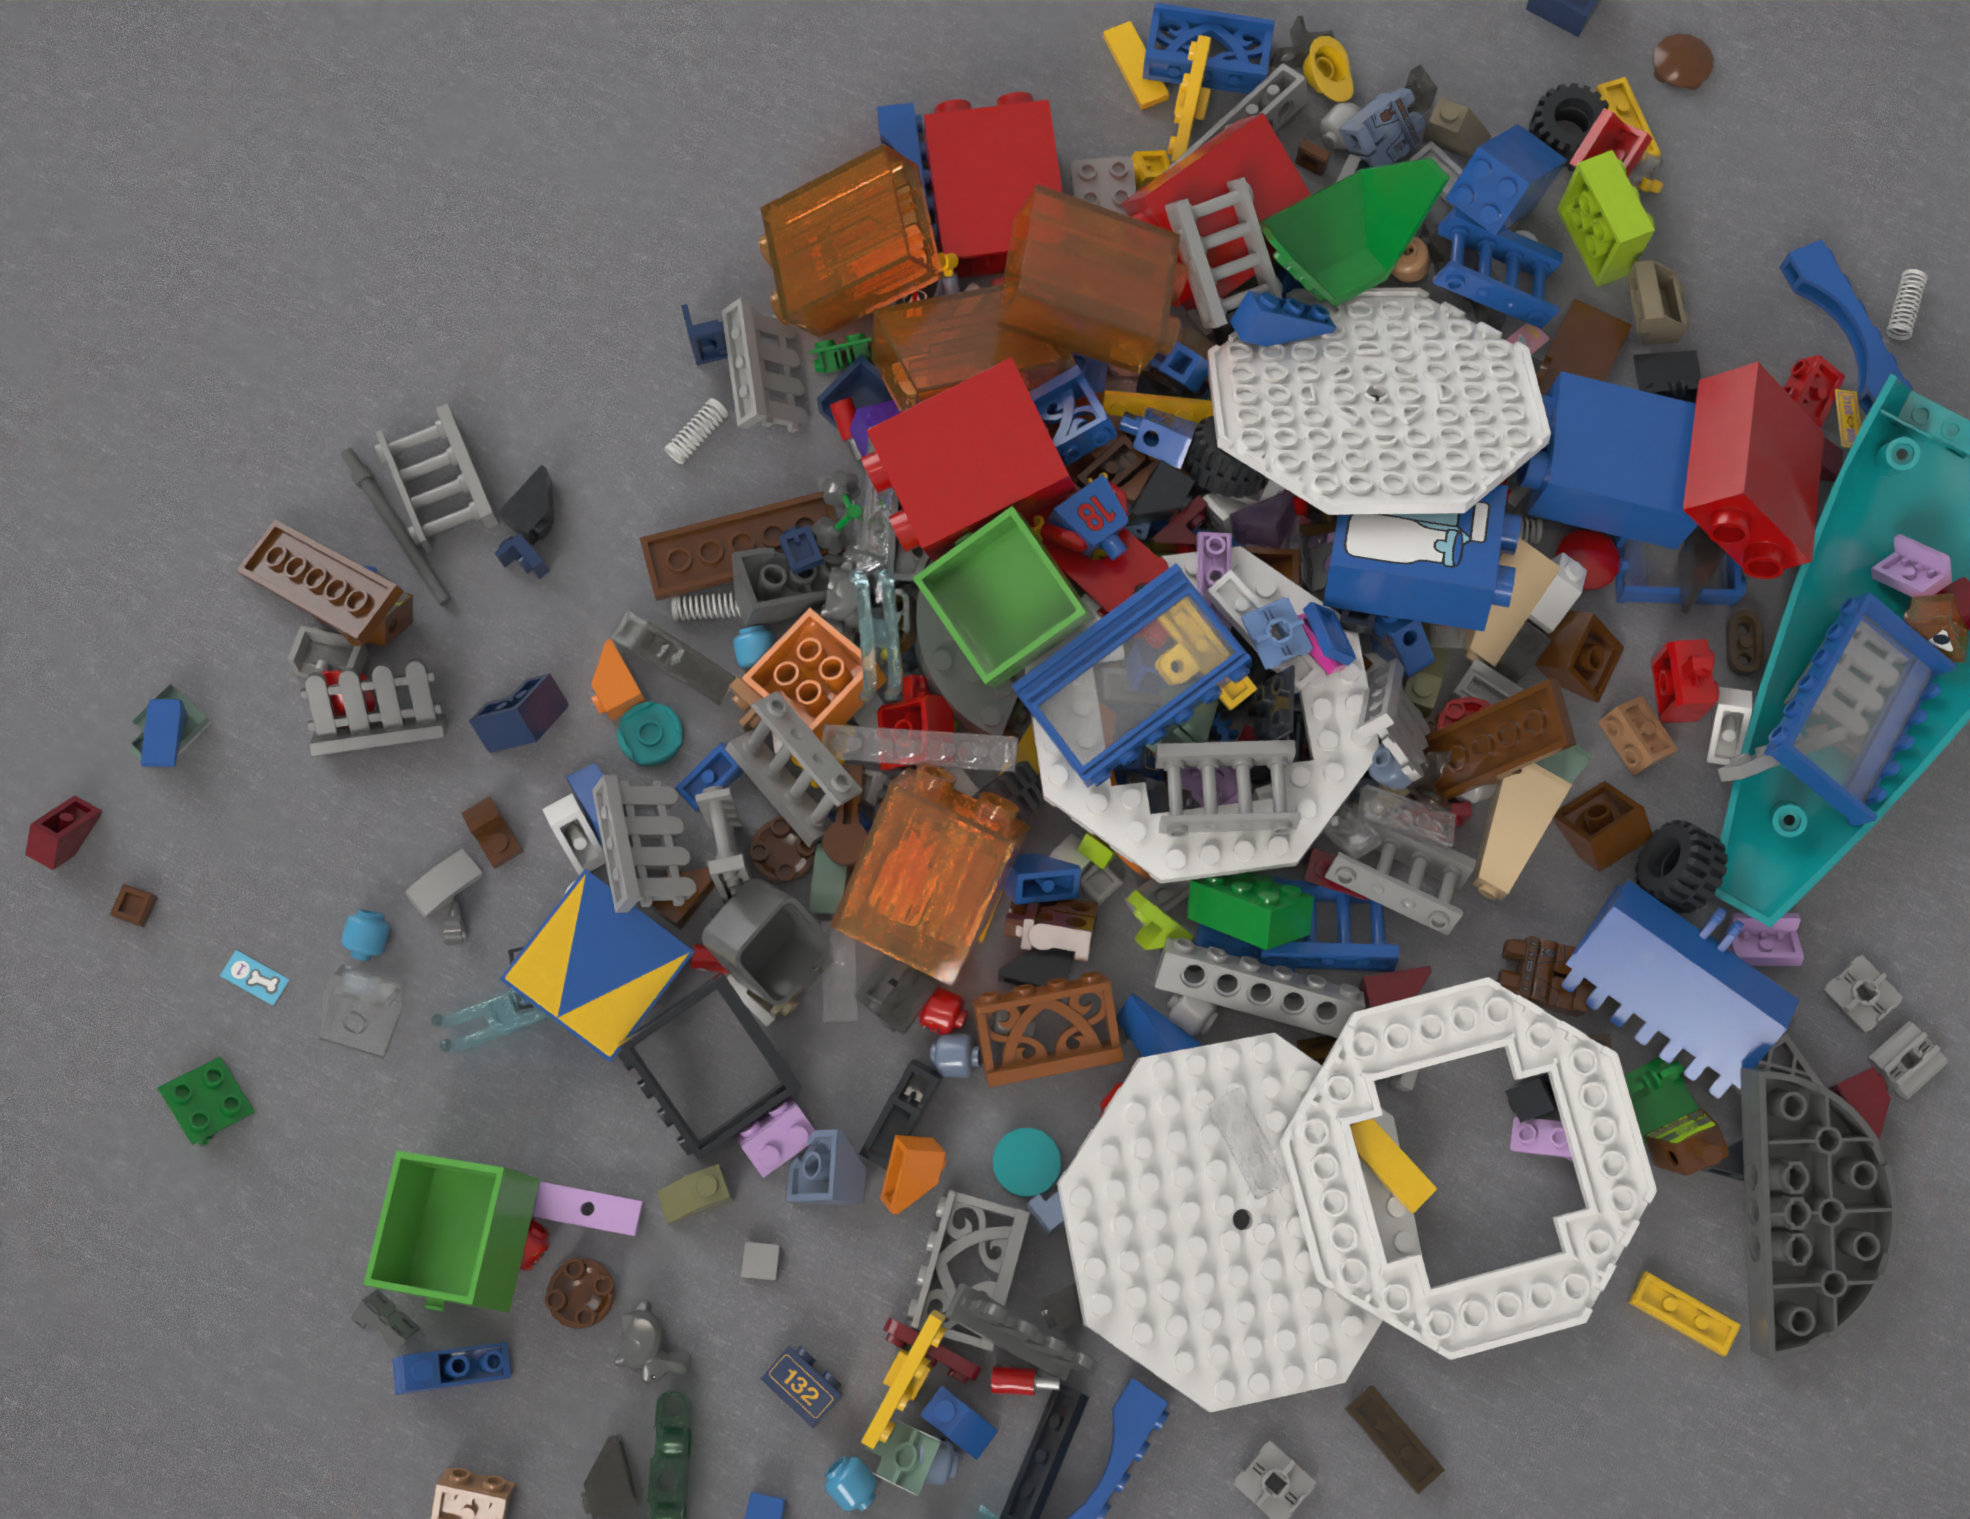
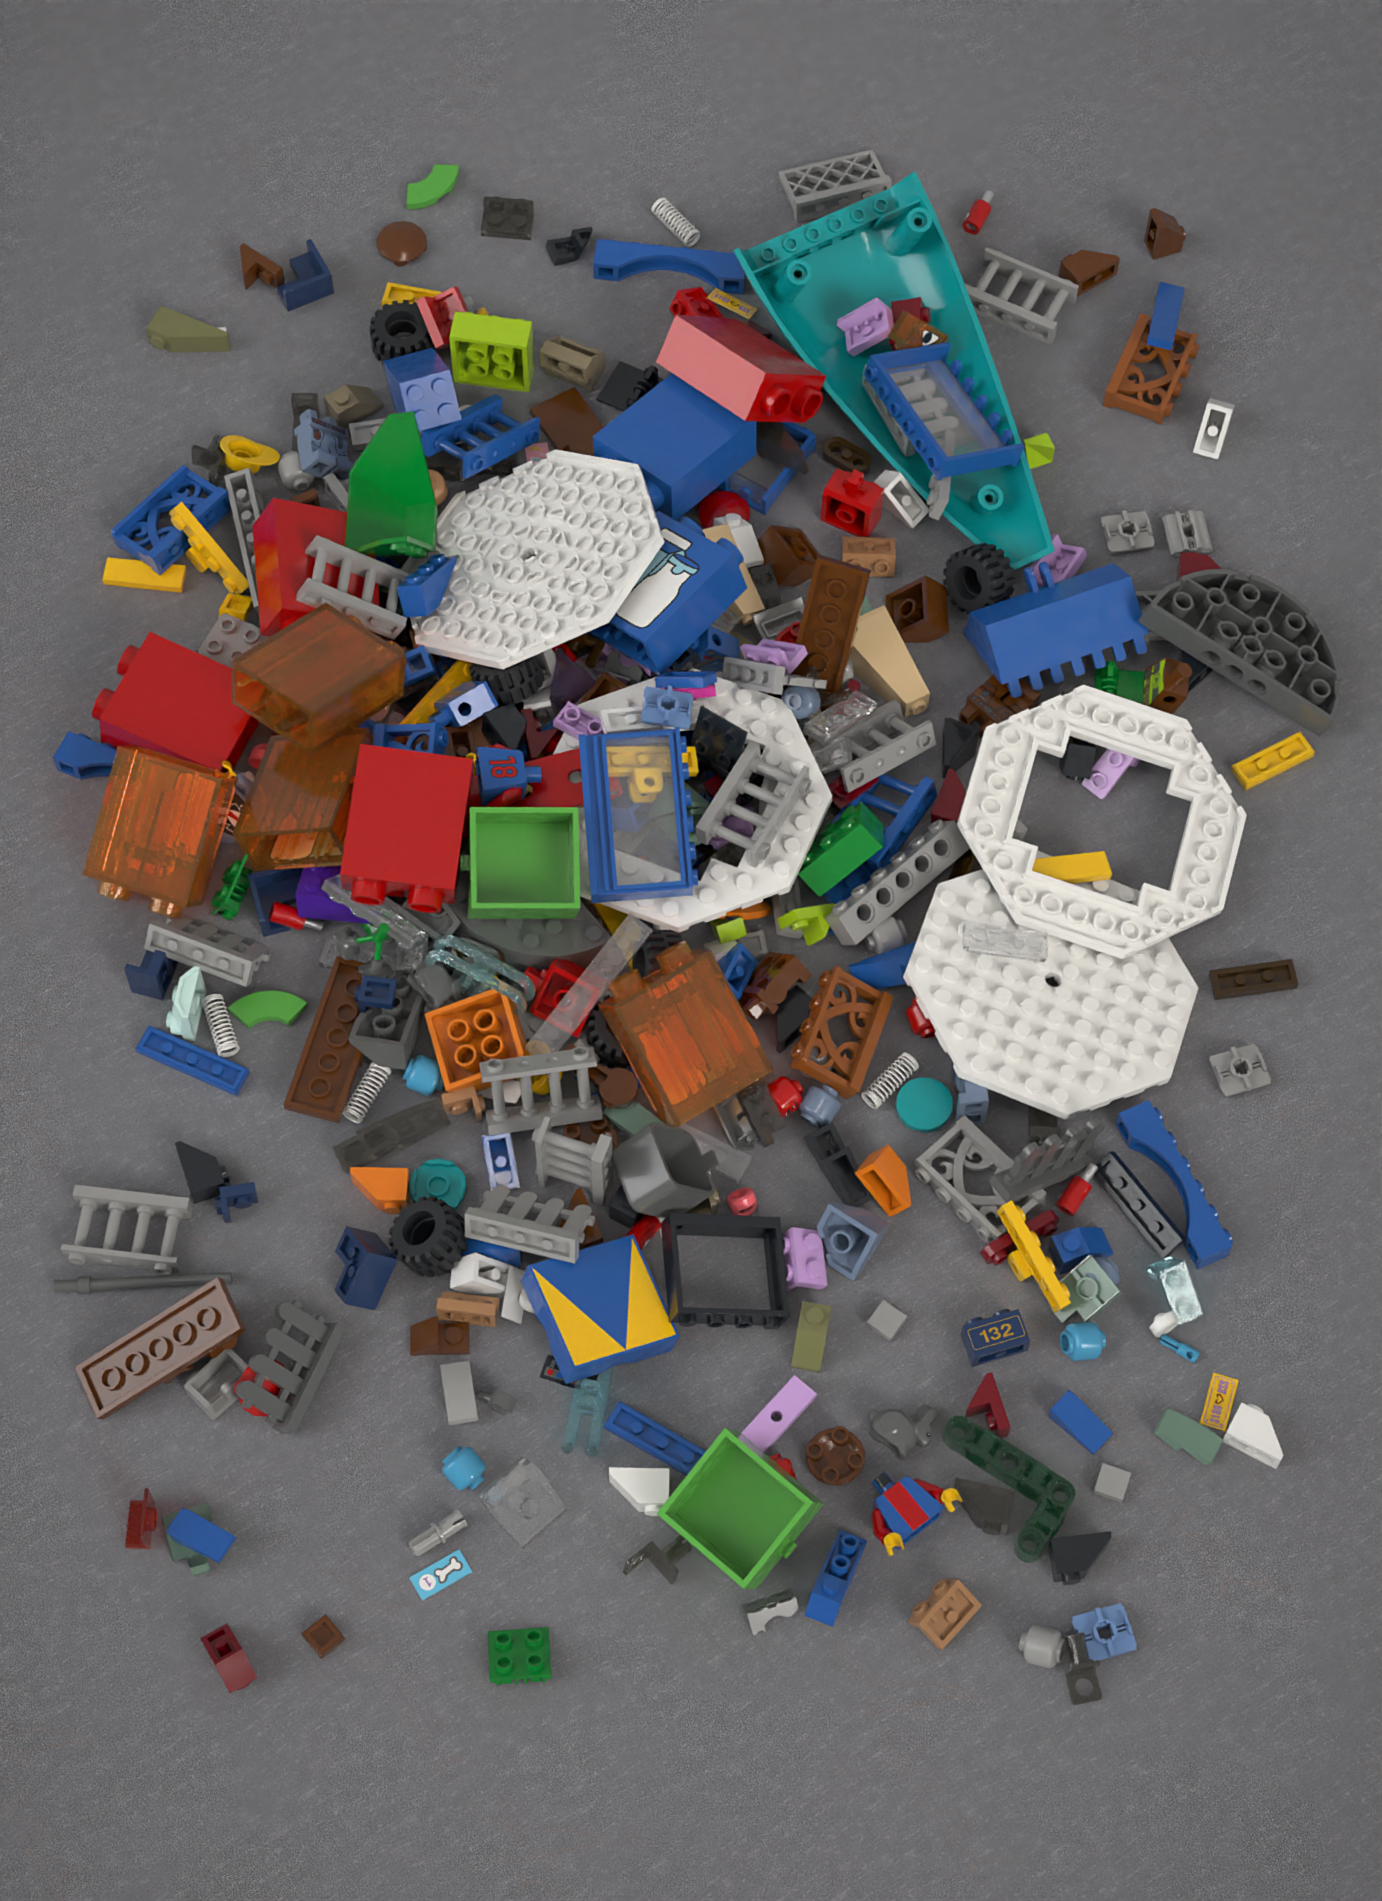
camera: 60 degrees left, 10 degrees down
(154, 674) = (141, 1522): none -> clear red piece
(289, 949) = (437, 1533): none -> light grey axle
(376, 1184) = (661, 1559): none -> clear smoke bracket
(439, 1121) = (643, 1487): none -> white slope
(502, 1104) = (653, 1438): none -> blue tile
(534, 839) = (468, 1308): none -> medium nougat bracket
(557, 1400) = (907, 1509): none -> torso
(561, 878) = (511, 1307): none -> white sticker
(577, 754) = (416, 1225): none -> black tyre
(648, 430) = (192, 1060): none -> blue tile
(693, 386) = (187, 1004): none -> light aqua slope
(729, 1416) = (989, 1400): none -> dark red slope
(745, 461) = (268, 1006): none -> bright green tile
(804, 1038) = (742, 1199): none -> coral tile
(1062, 1124) = (912, 1068): none -> white piece
(1430, 707) = (775, 653): none -> lavender bracket
(1466, 959) = (958, 744): none -> black slope
(1773, 51) = (436, 185): none -> bright green tile
(1786, 141) = (507, 218): none -> clear smoke bracket
(1797, 222) = (568, 248): none -> black slope
(1896, 838) = (1039, 450): none -> lime slope

